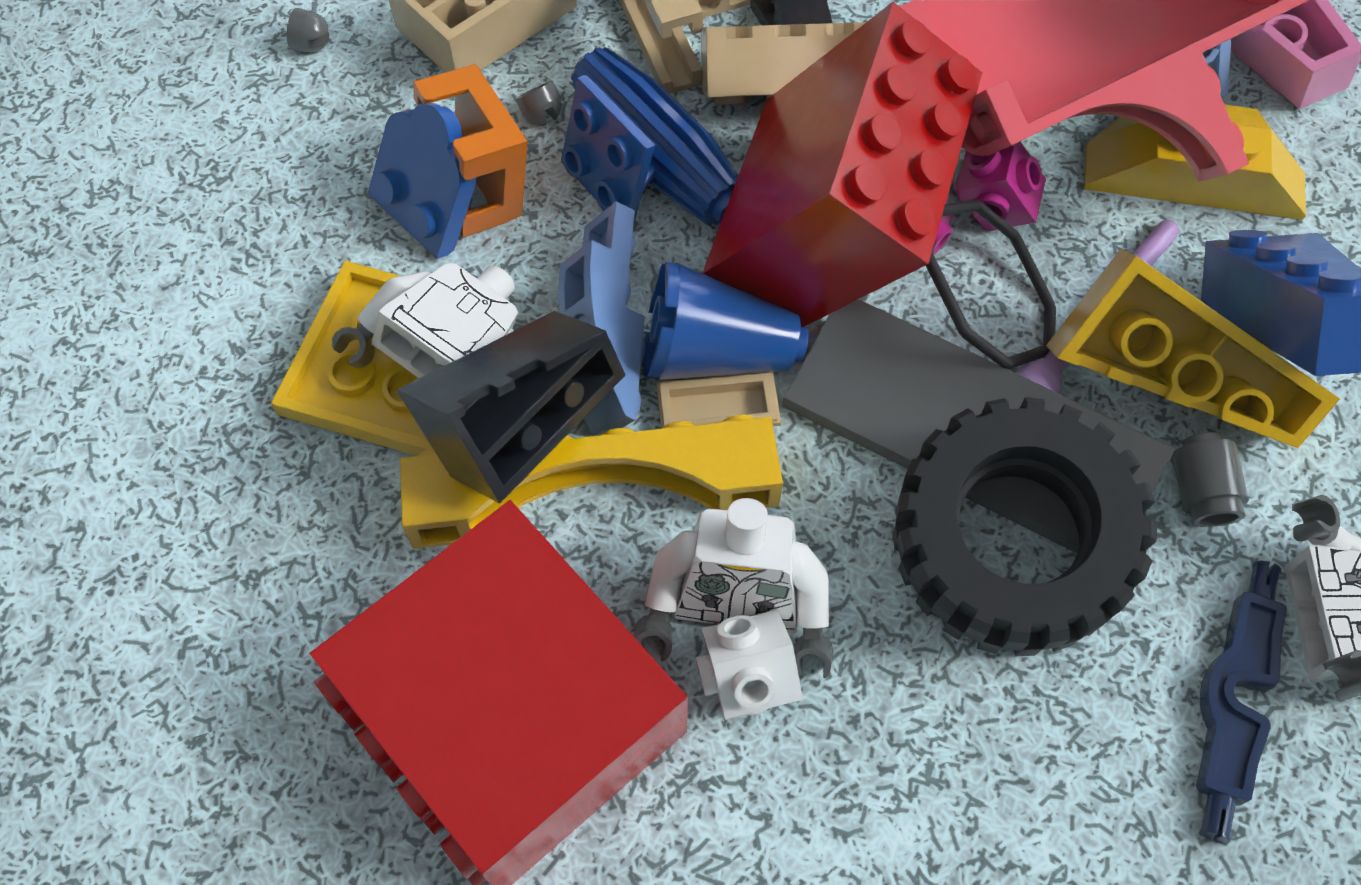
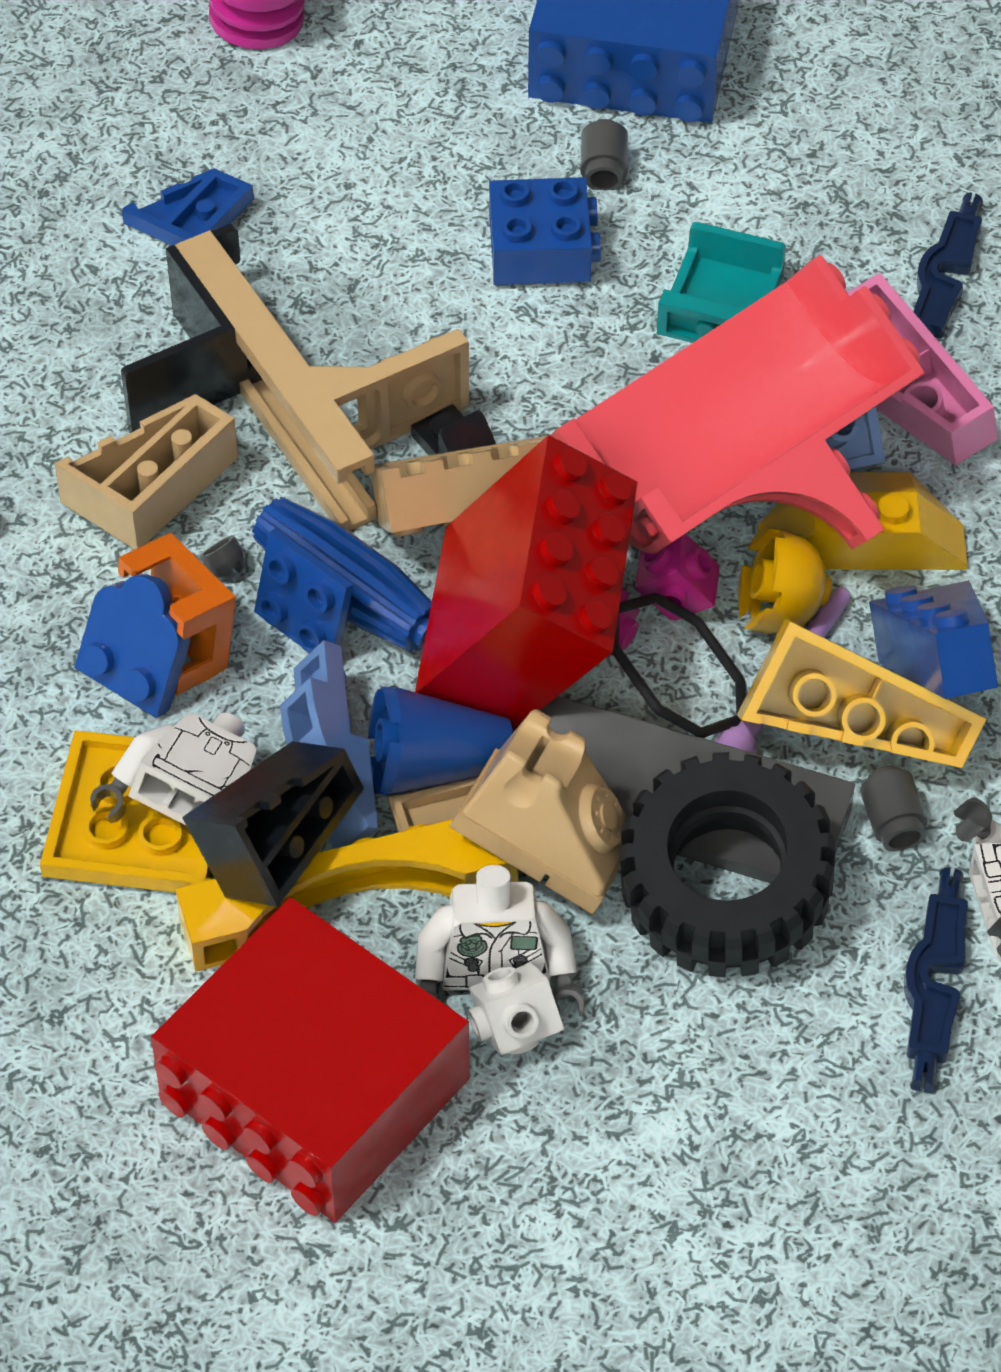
camera: 10 degrees left, 10 degrees down
(823, 434) = (547, 812): none -> tan piece
(1116, 195) = (784, 573): none -> yellow cylinder

